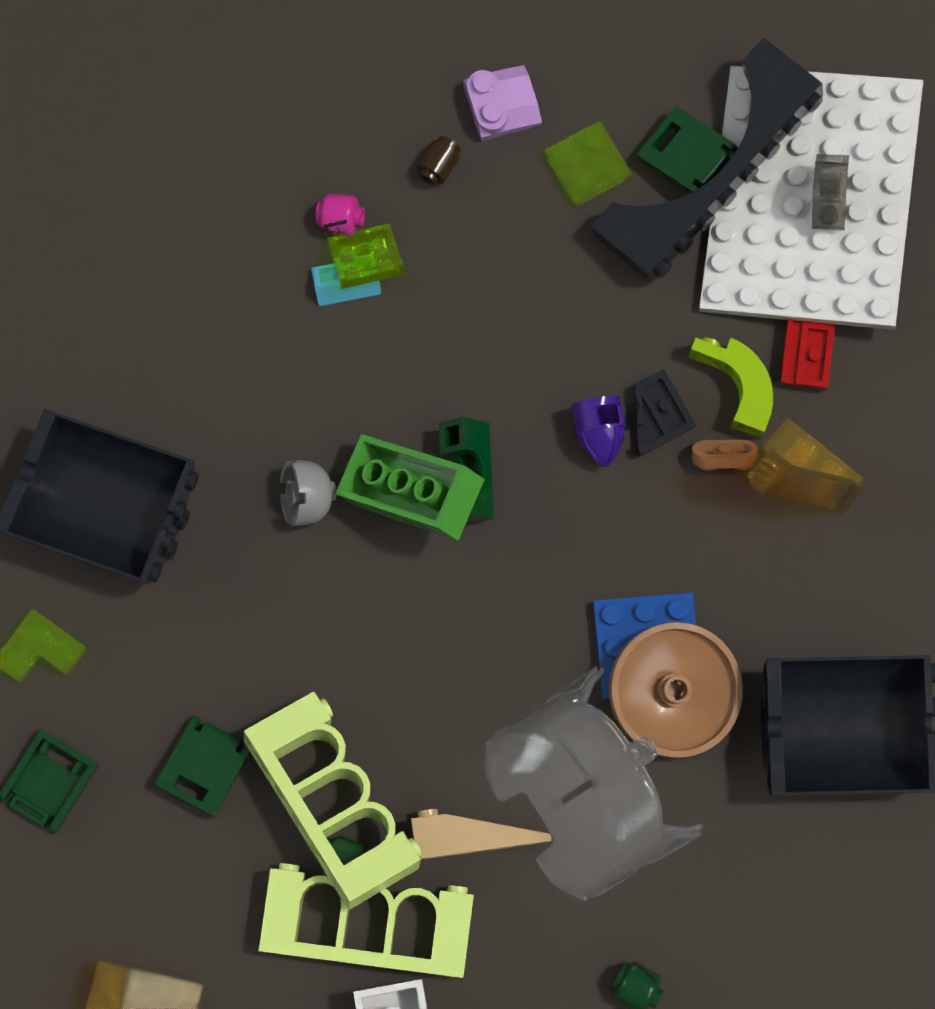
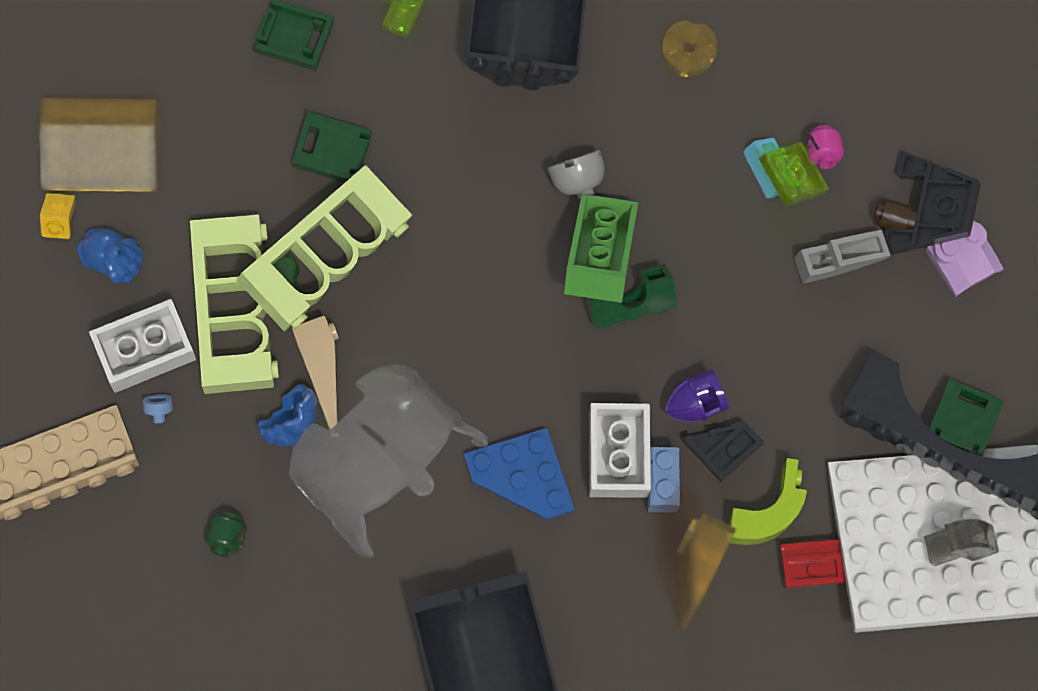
camera: 70 degrees right, 5 degrees down
(174, 348) = (685, 62): none -> clear yellow plate
(447, 105) = (944, 208): none -> black wing
(470, 231) = (841, 256): none -> light grey slope
(522, 884) = (292, 419): none -> blue hair
(587, 163) = (931, 341): clear neon green plate -> none
(641, 526) = (619, 450): none -> white brick
(676, 689) = (484, 509): medium nougat dish -> none
(682, 487) = (664, 480): none -> medium blue brick
(724, 454) = (700, 500): medium nougat plate -> none

